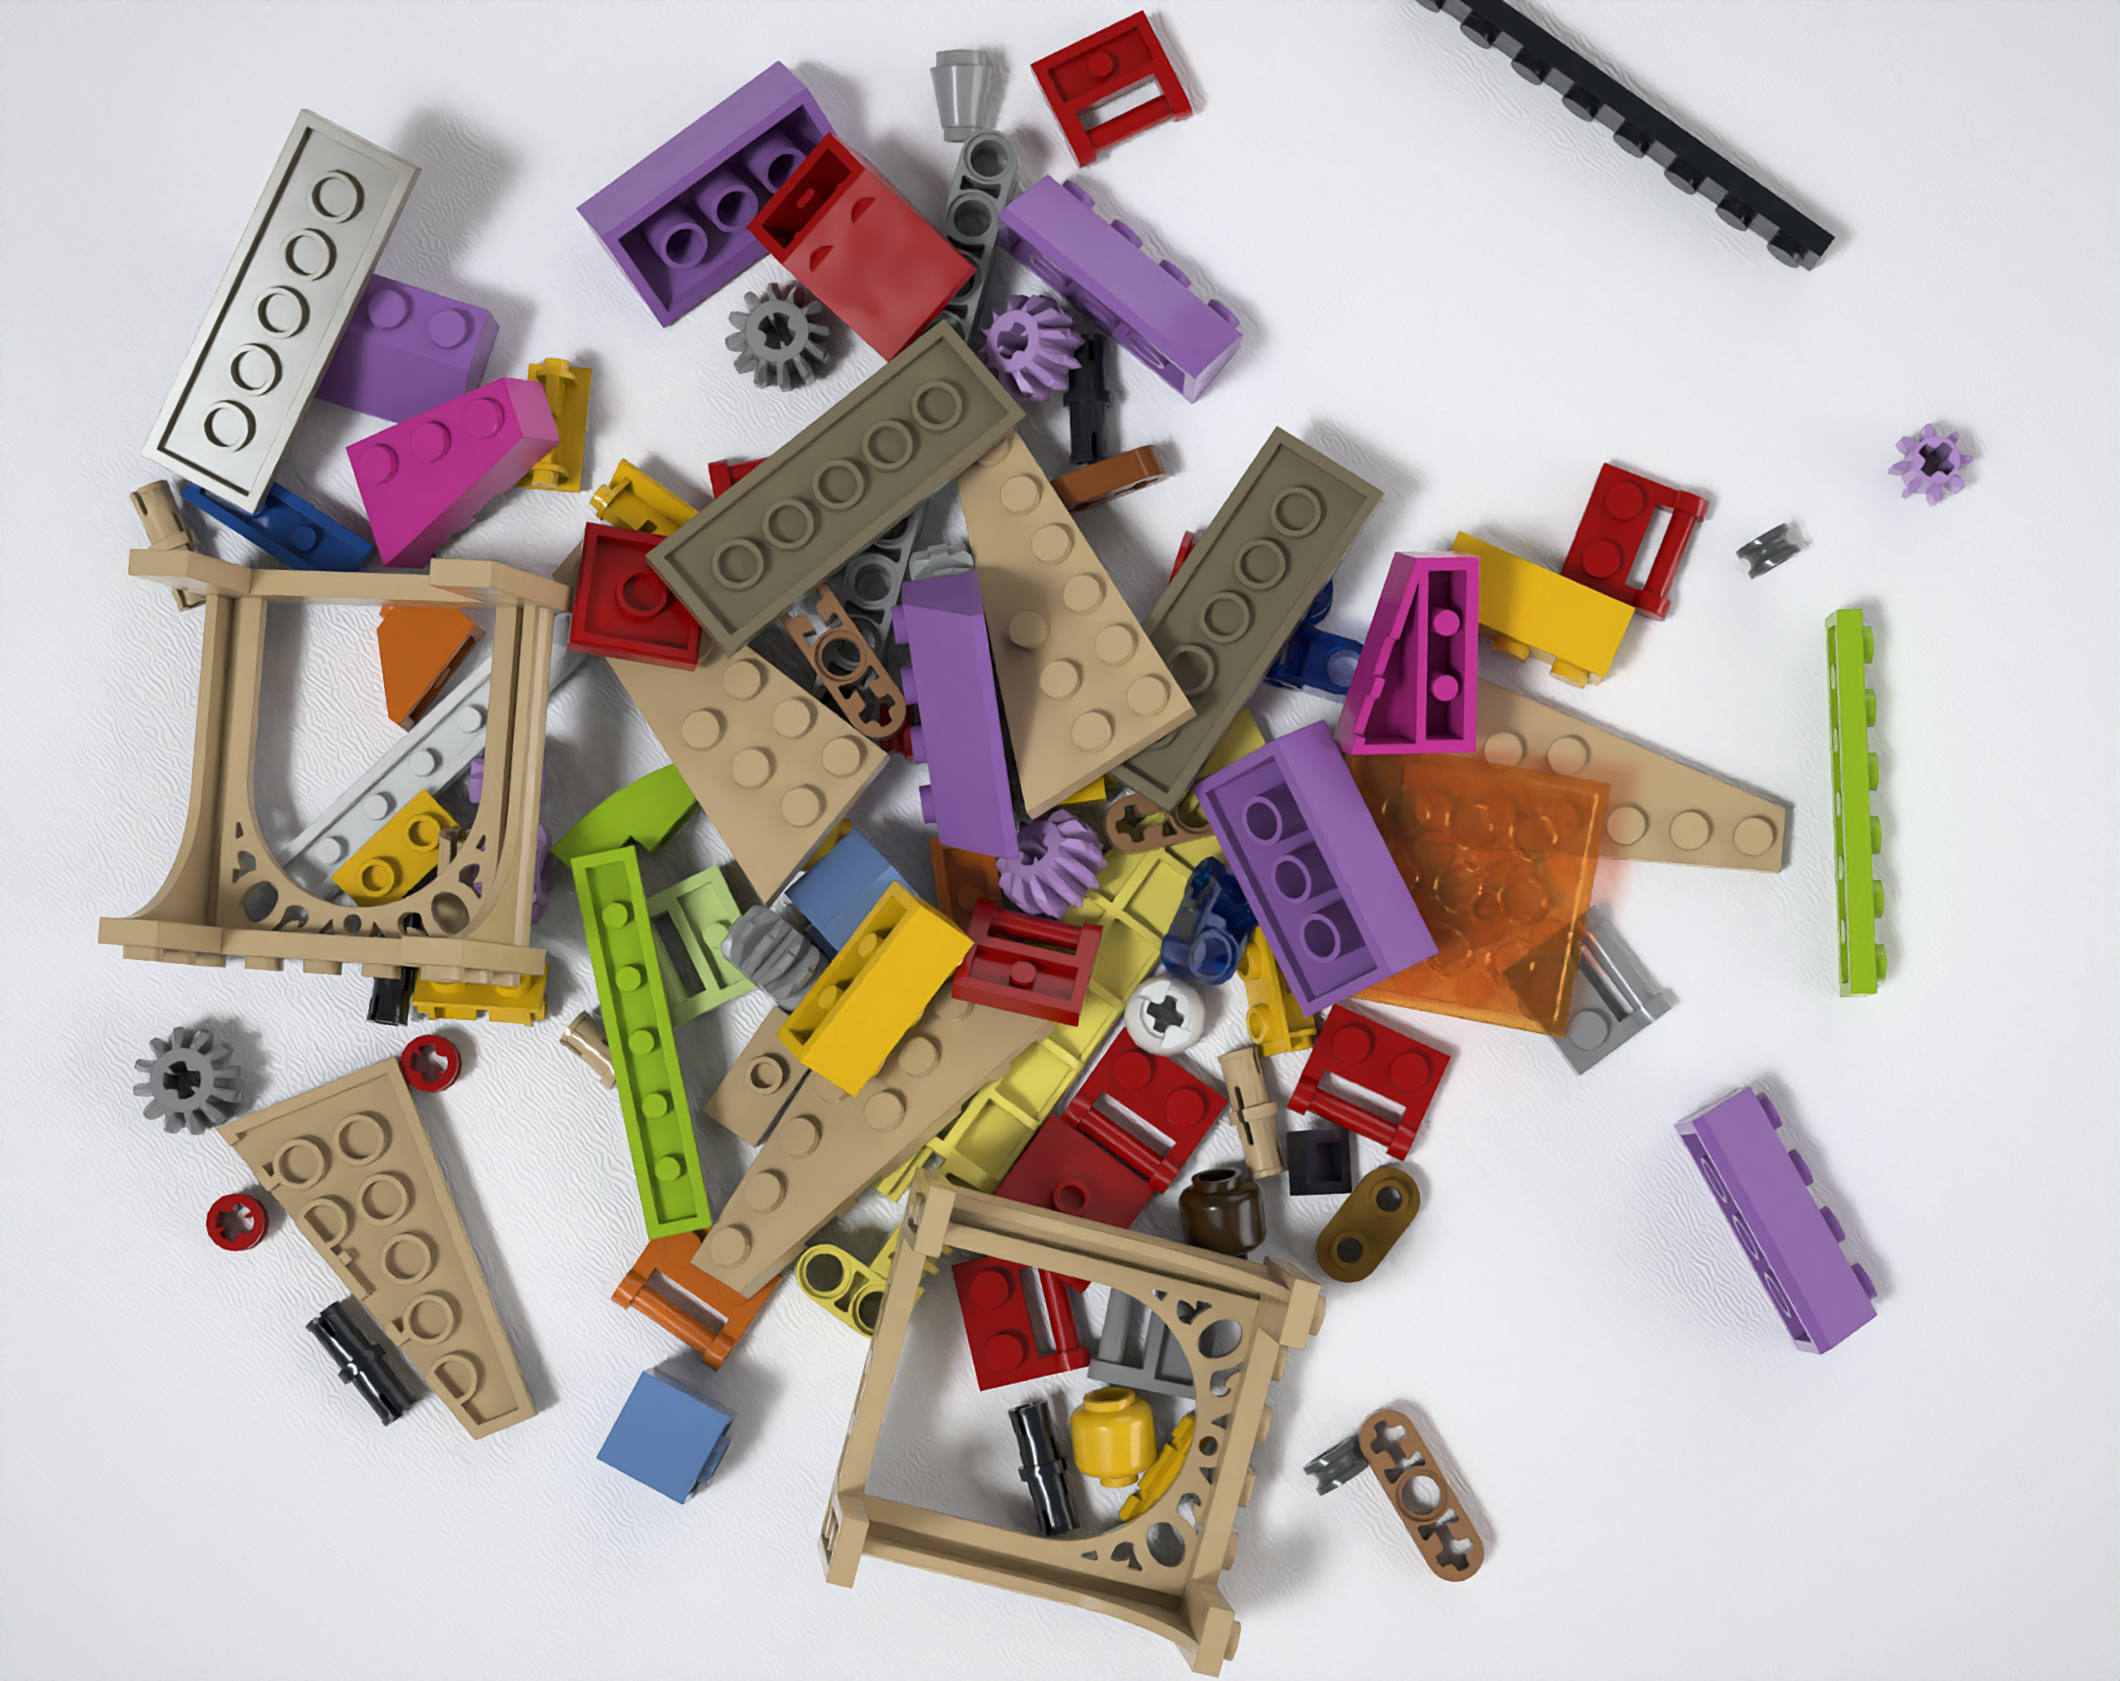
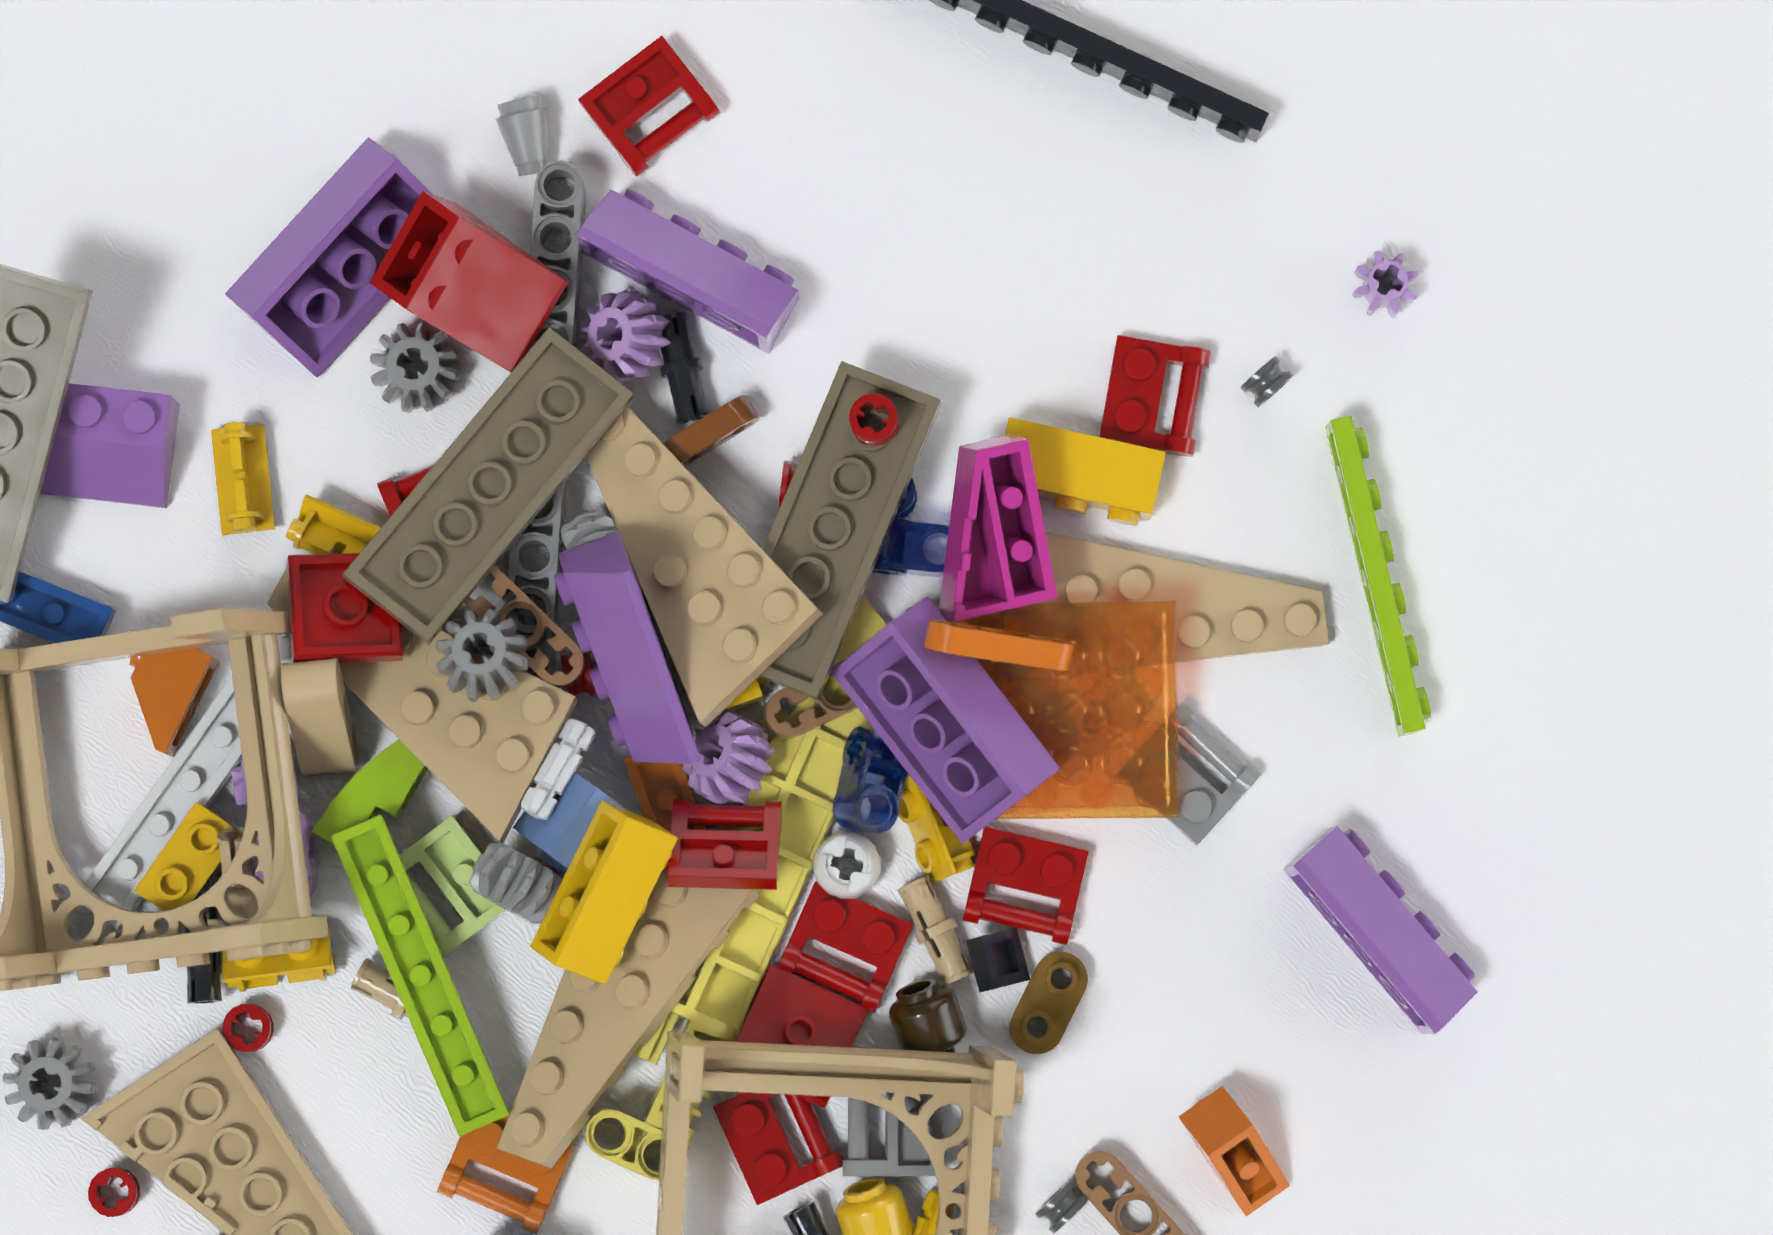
camera: 20 degrees left, 0 degrees up
(447, 464) = (161, 529): dark pink wedge -> none
(585, 718) = (319, 717): none -> tan beam
(757, 1083) = (522, 988): tan plate -> none
(778, 661) = (488, 675): none -> light grey gear
(850, 834) = (557, 769): none -> white axle
(1313, 484) = (880, 404): none -> red bush
(1396, 792) = (998, 645): none -> orange beam
(1552, 1442) = (1234, 1150): none -> orange slope

